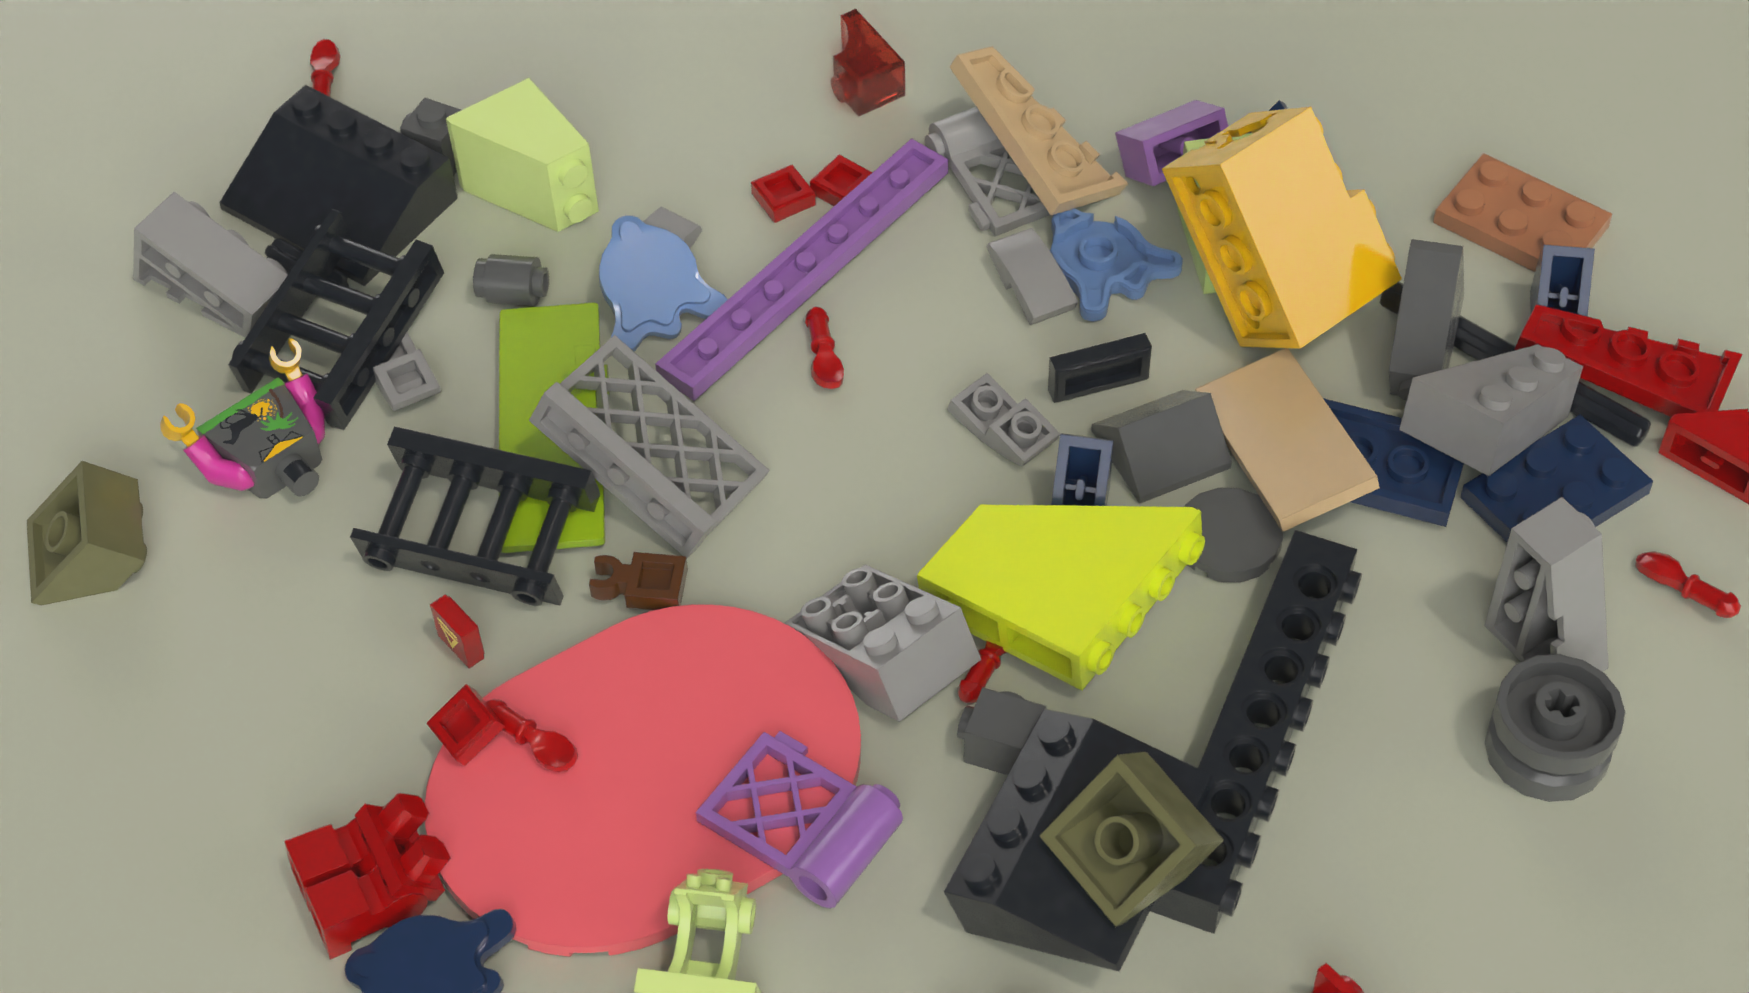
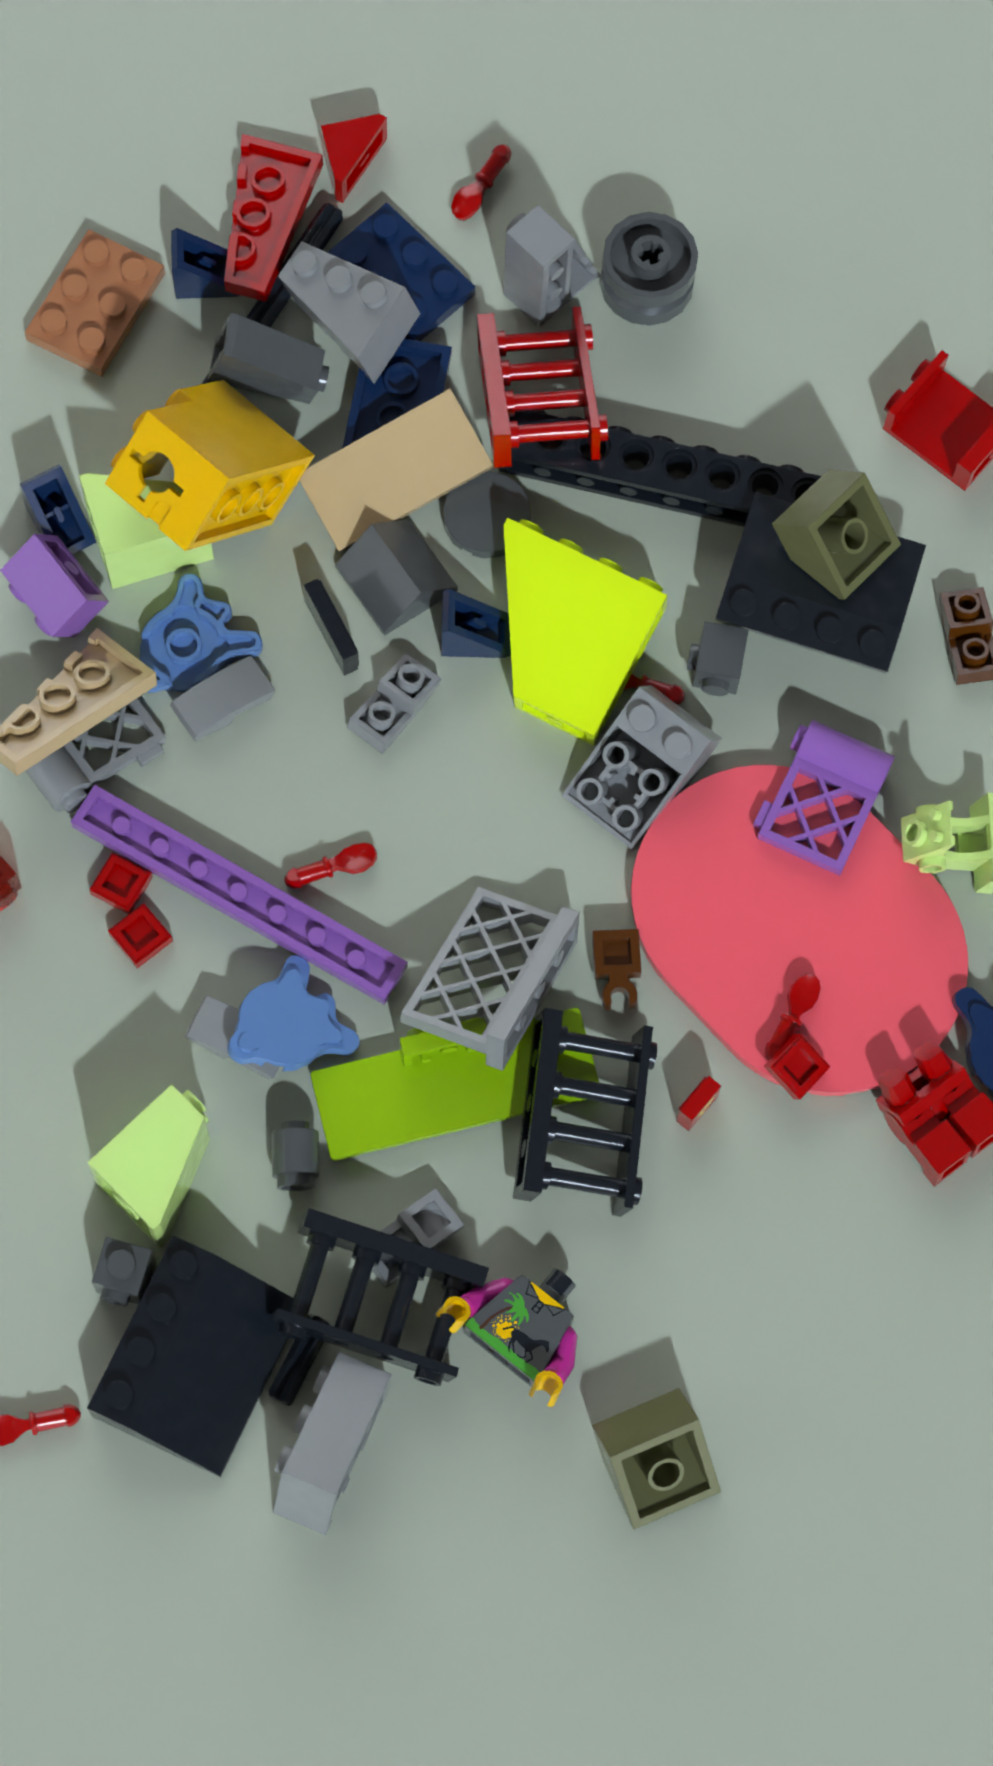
camera: 105 degrees left, 20 degrees up
(1387, 530) = (503, 404): none -> red fence

